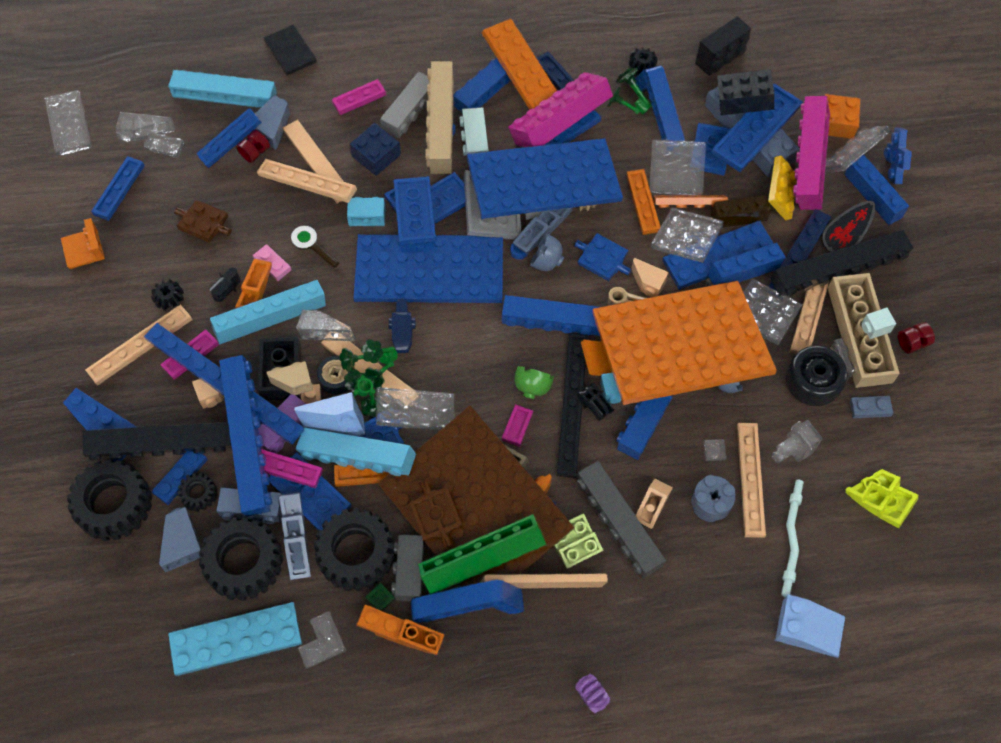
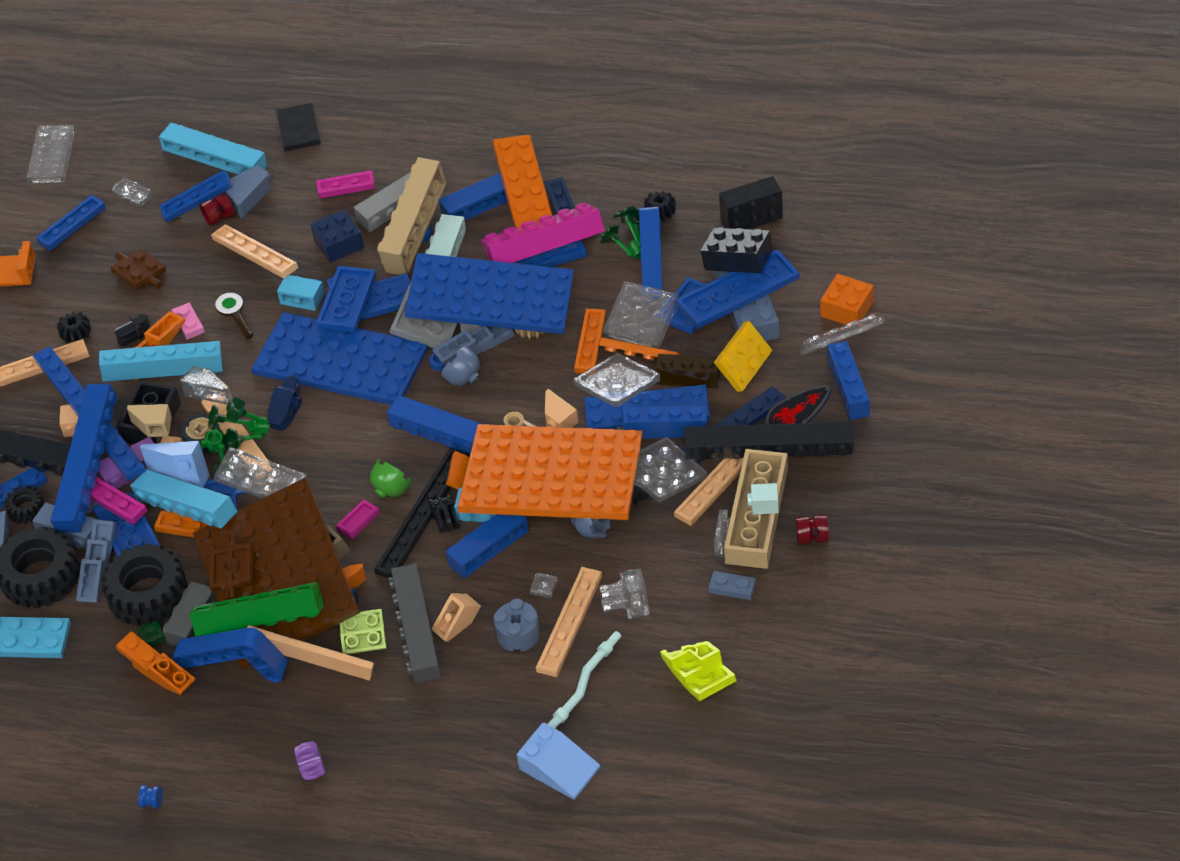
camera: 25 degrees right, 15 degrees down
(138, 126) = (112, 169): clear slope -> none
(202, 343) = (87, 376): dark pink plate -> none
(310, 151) = (273, 227): light nougat tile -> none
(327, 643) = (84, 661): clear plate -> none
(603, 257) = (522, 385): blue plate -> none
(812, 153) = (786, 326): dark pink brick -> none
(816, 375) = (683, 539): black wheel -> none
(898, 155) = (881, 348): blue plate -> none

